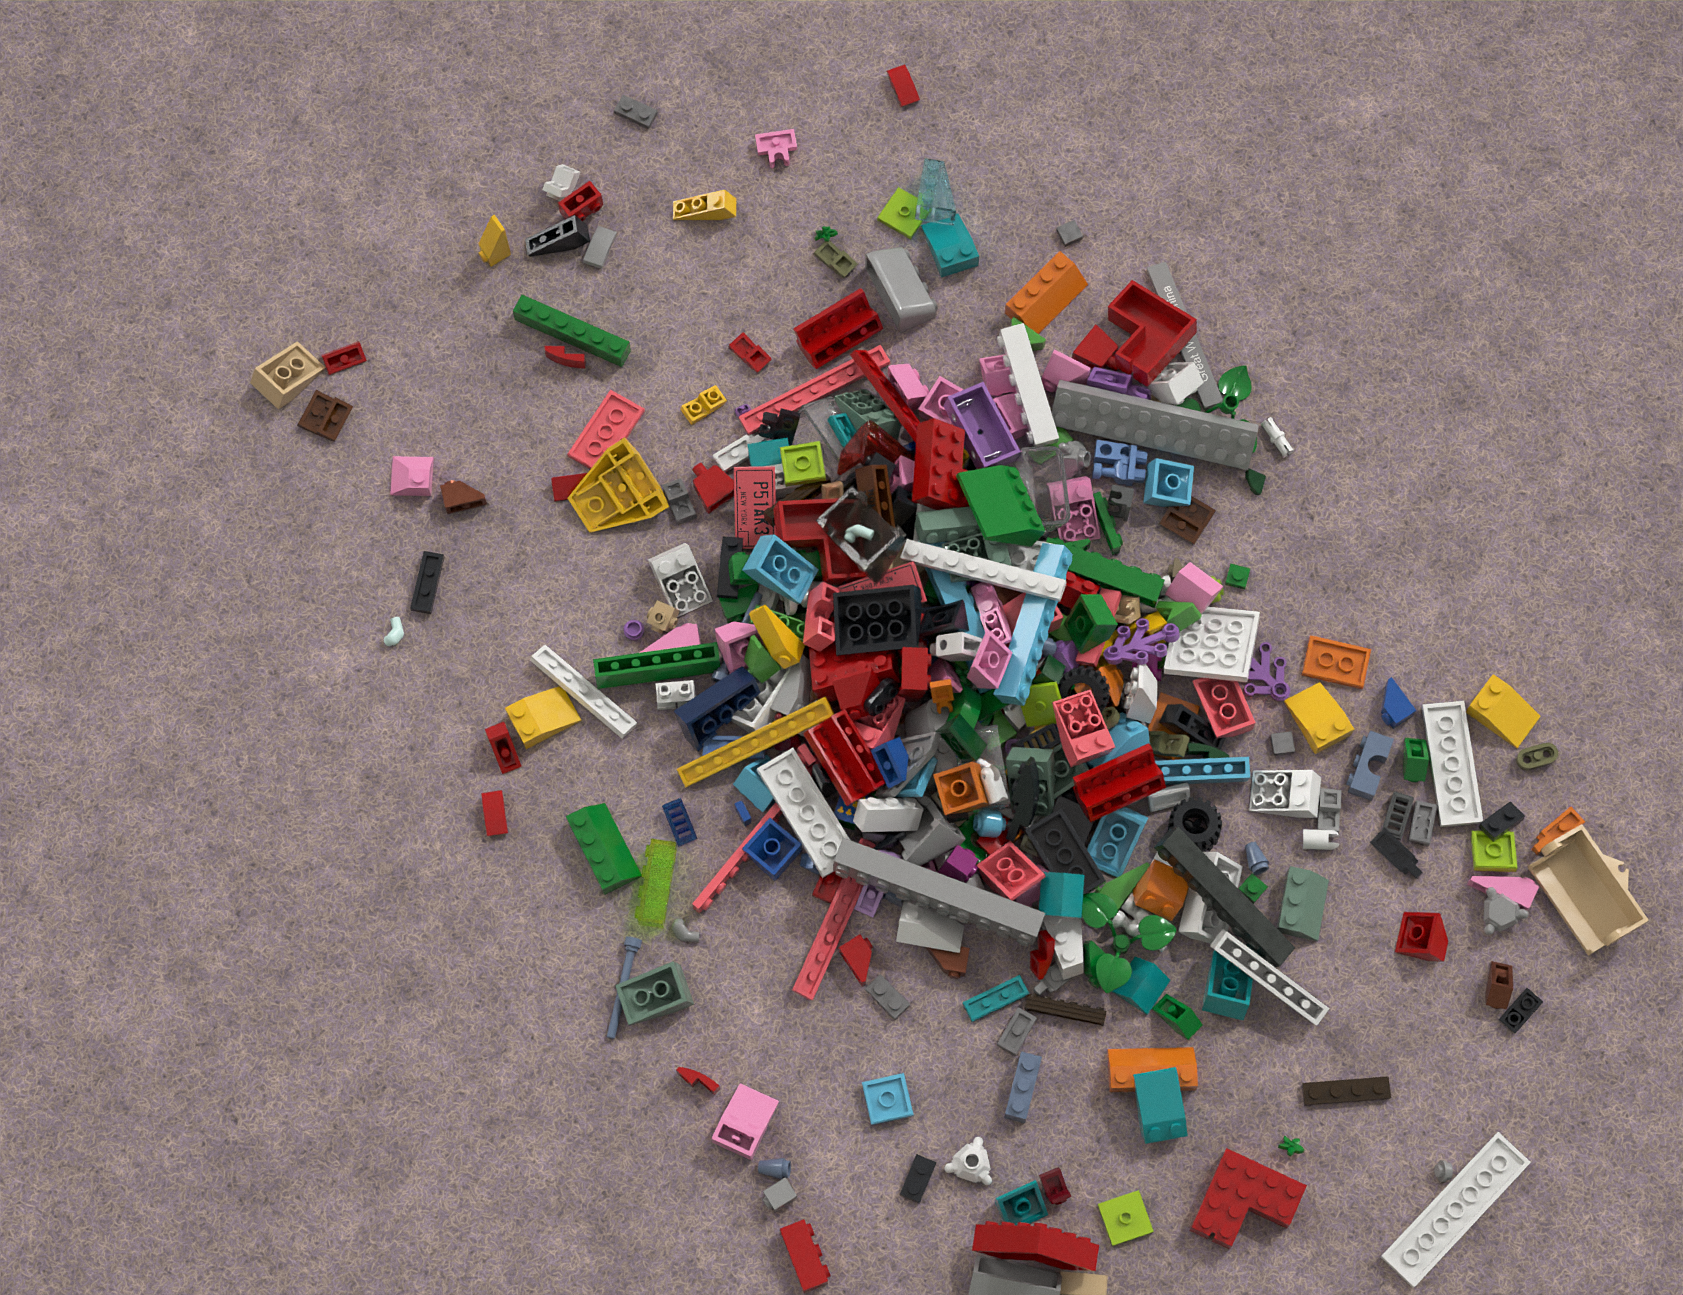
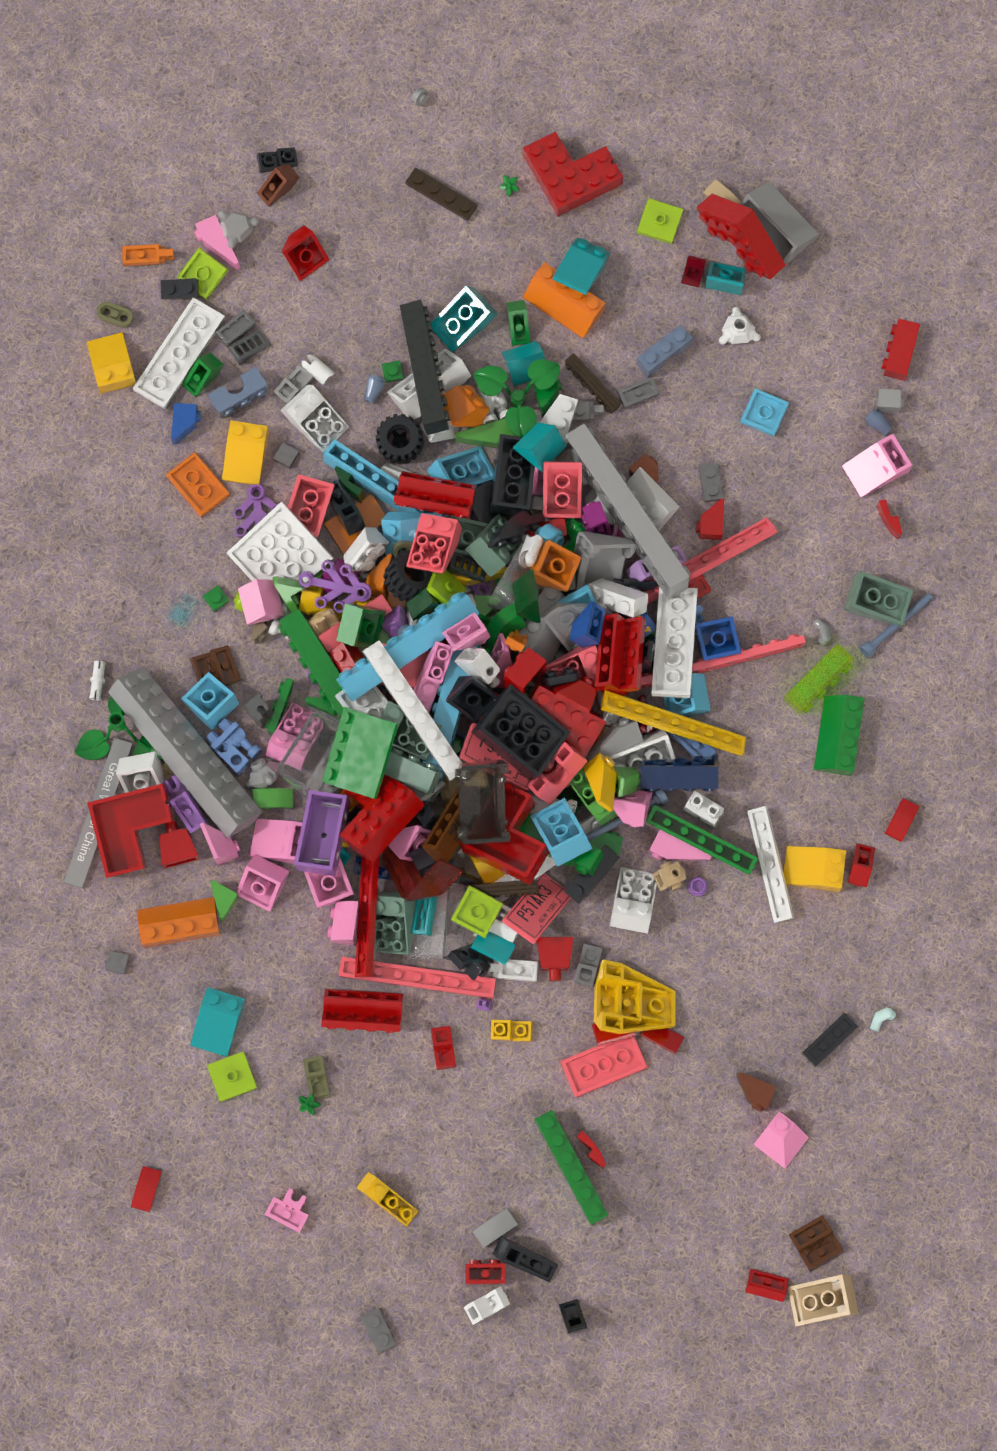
camera: 145 degrees left, 5 degrees up
(479, 217) = (572, 1316): none -> black slope
(494, 243) = (583, 1287): yellow slope -> none
(673, 805) = (766, 728): clear blue slope -> none
(743, 813) = (718, 685): blue tile -> none
(805, 755) = (645, 686): coral plate -> none
(832, 490) = (471, 875): tan tile -> none
(856, 531) = (483, 810): light aqua arm -> none
(900, 287) = (285, 1011): light grey windscreen -> none
(918, 1178) = (783, 346): black plate -> none
(935, 195) = (198, 1069): clear light blue wedge -> none
(995, 998) = (634, 427): teal tile -> none
(1028, 386) = (257, 845): white brick -> none
(1042, 957) = (587, 419): red slope -> none
(1168, 744) = (371, 507): olive slope -> none
(1255, 481) = (142, 658): dark green tile -> none
(1257, 542) = (180, 613): none -> clear light blue plate
(1269, 977) = (436, 295): white brick -> none
(1302, 904) = (368, 334): sand green slope -> none
(1396, 853) = (272, 321): black hinge -> none
(1455, 1209) = (432, 68): white plate -> none
(1588, 890) = (165, 193): tan piece -> none

